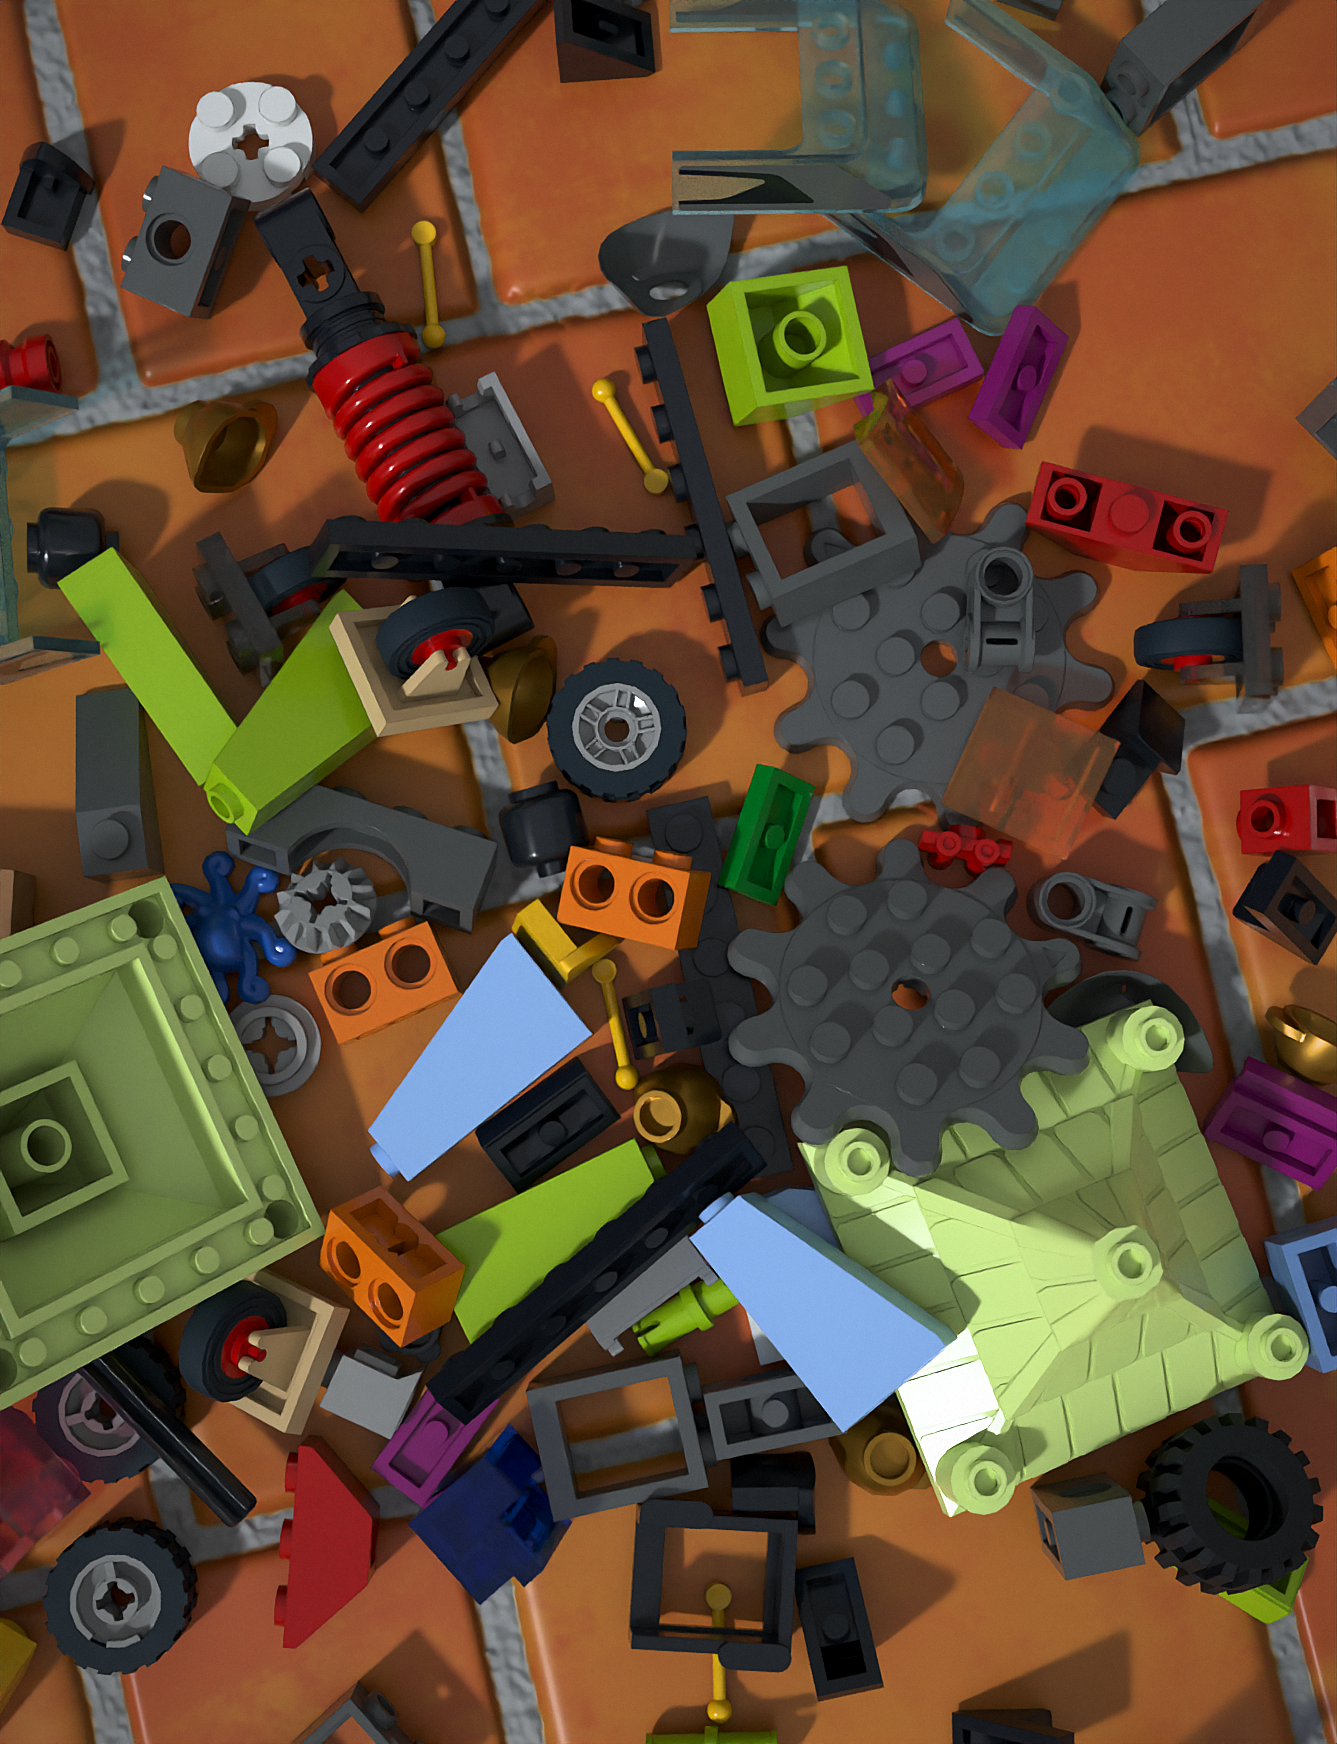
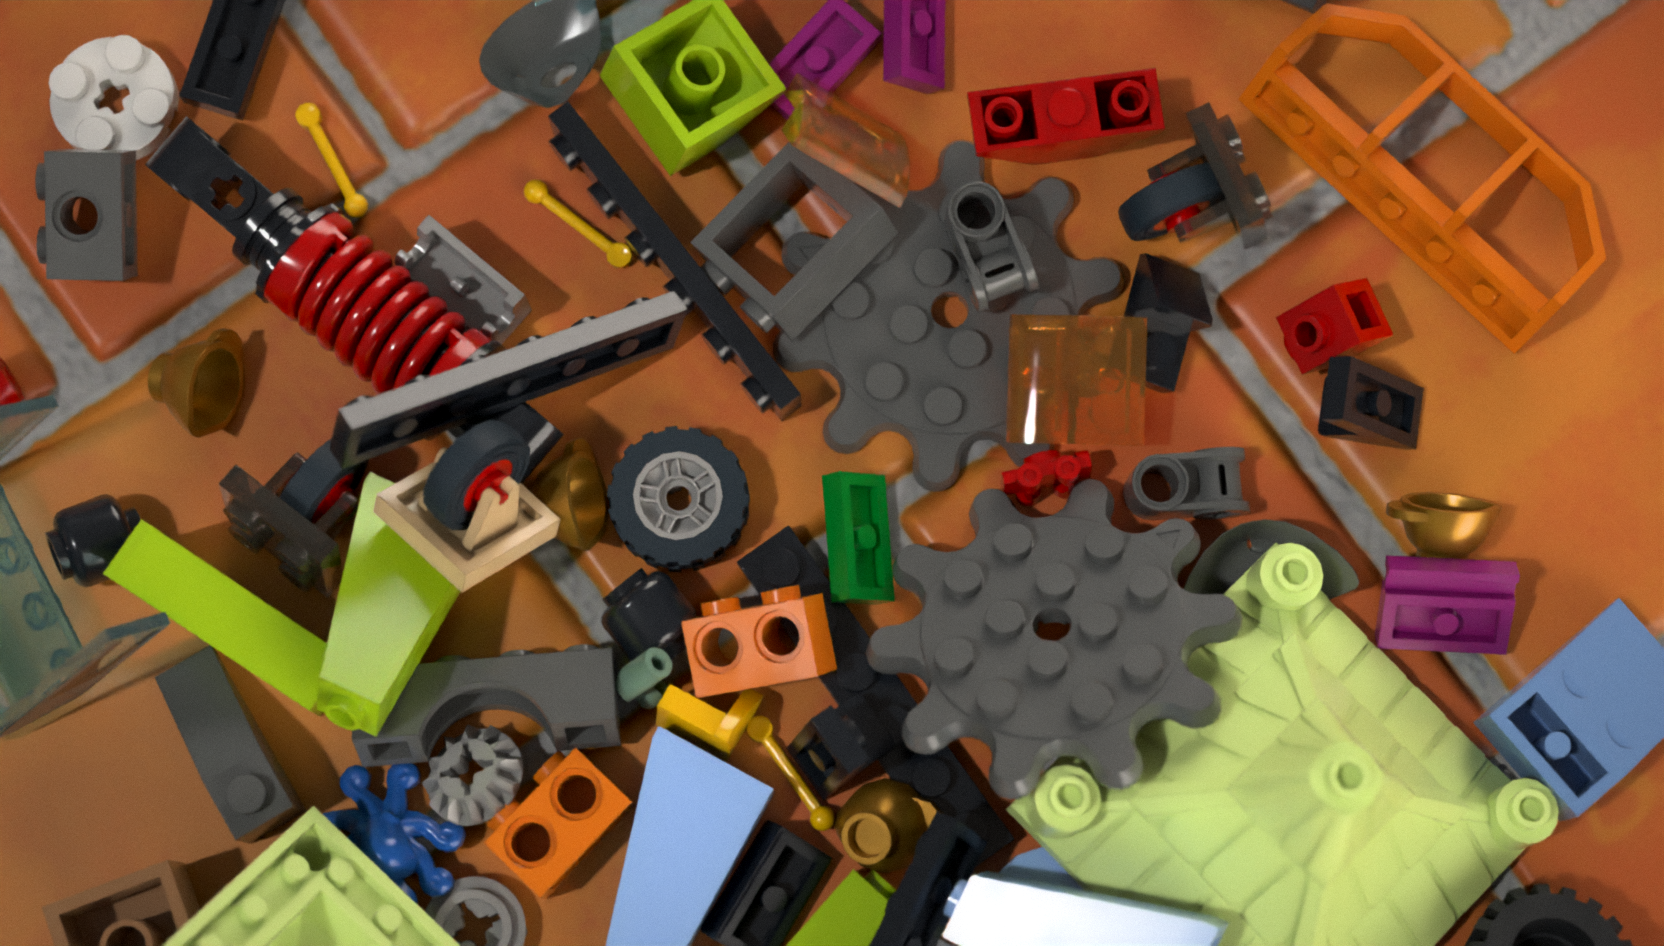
camera: 20 degrees left, 5 degrees down
(517, 883) = (644, 678): none -> sand green arm

